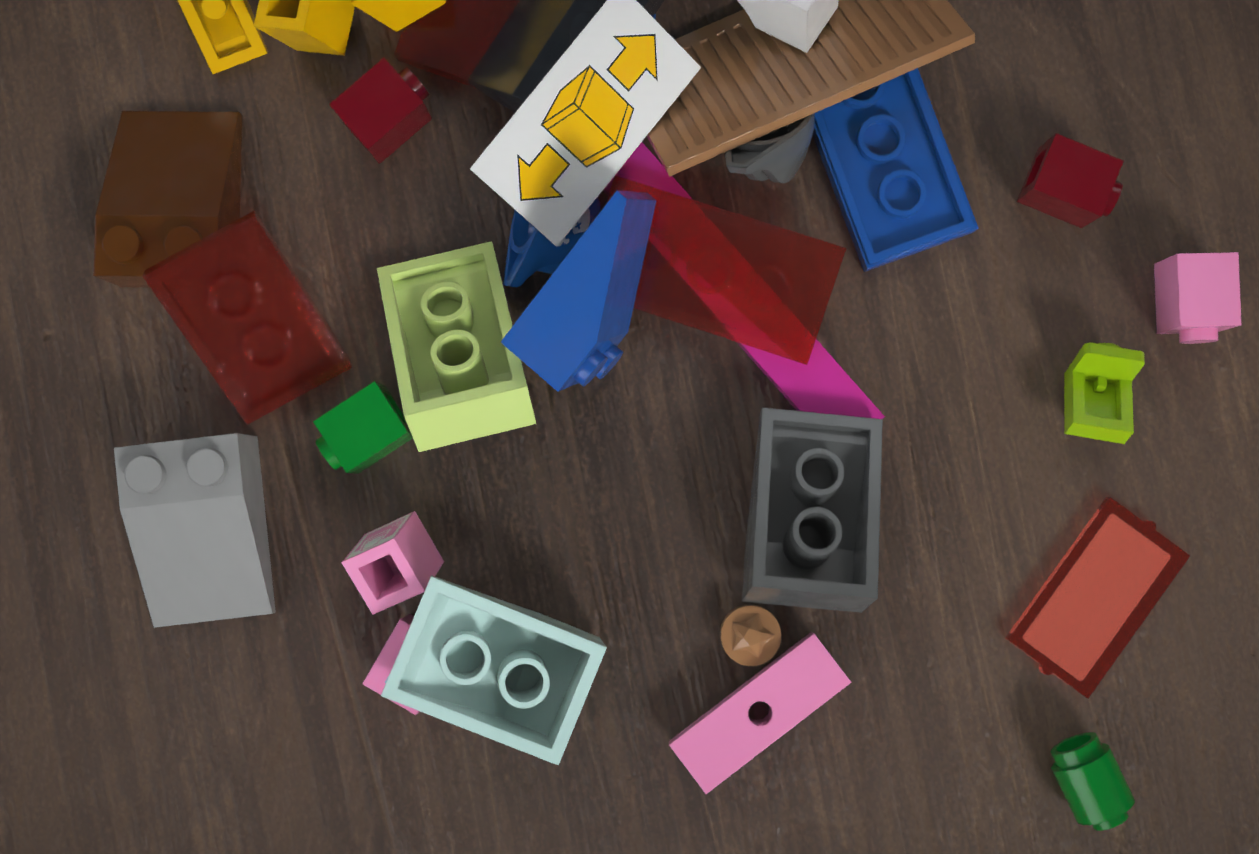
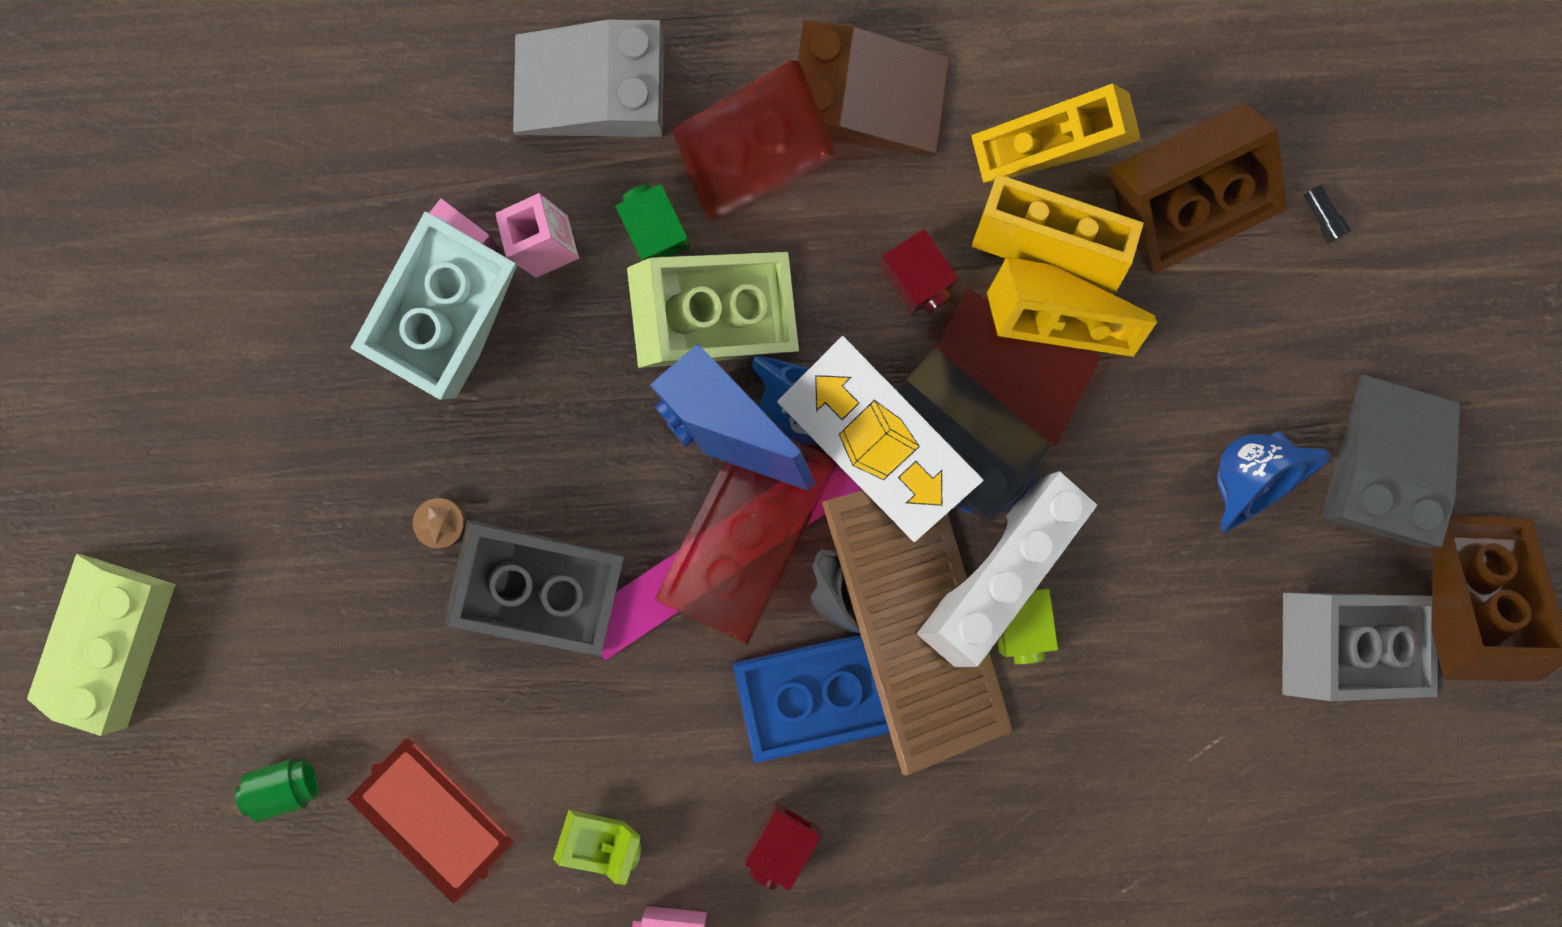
camera: 90 degrees right, 0 degrees up
(729, 738) = (358, 494): bright pink tile -> none

